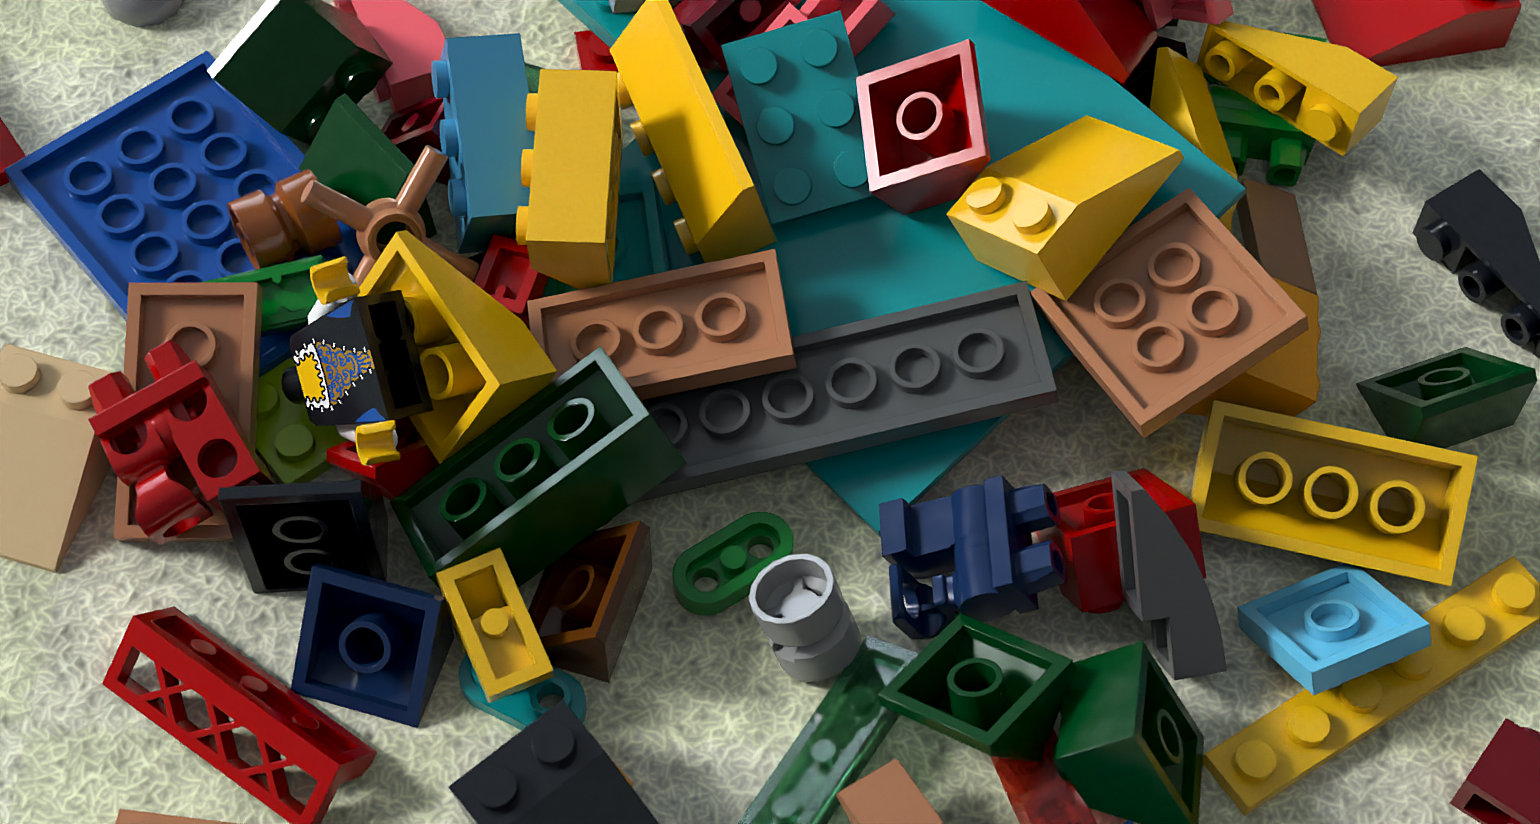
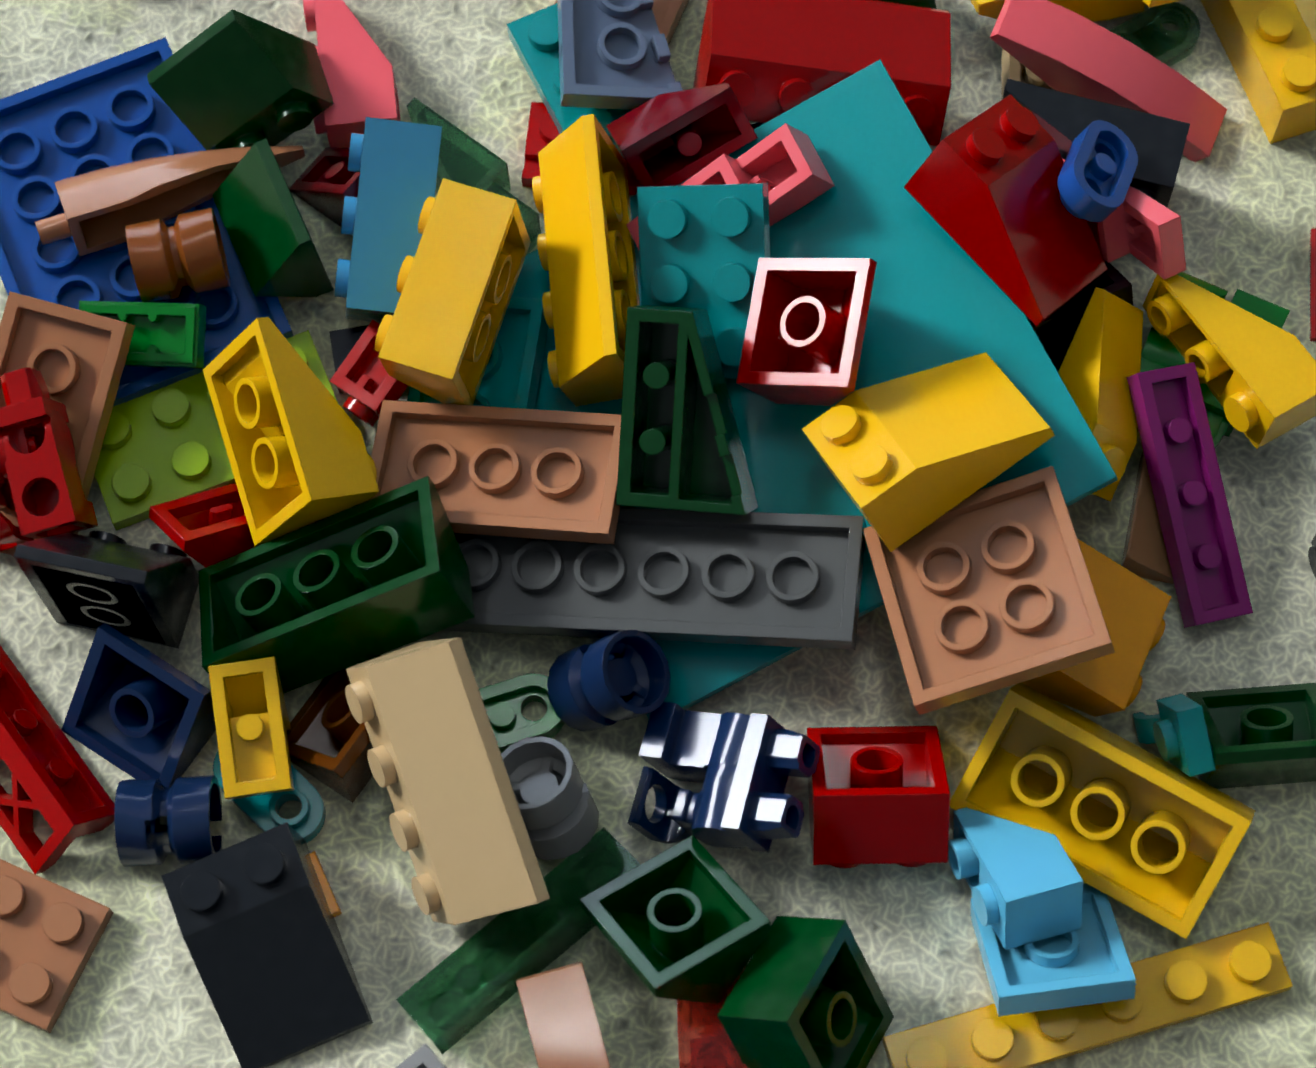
camera: 20 degrees right, 10 degrees up
(193, 200) = (161, 187): none -> nougat piece
(357, 363) = (196, 438): torso -> none
(371, 218) = (275, 278): nougat bar -> none
(458, 734) = (188, 808): none -> dark blue wheel
(715, 614) = (445, 782): none -> tan slope
(824, 240) = (678, 418): none -> dark green wedge
(830, 496) = (609, 681): none -> dark blue wheel
(1165, 584) = (894, 864): dark grey slope -> none
(1279, 569) = (1016, 877): none -> medium azure slope
(1299, 208) = (1189, 494): none -> magenta plate
(1376, 405) = (1178, 733): none -> teal plate

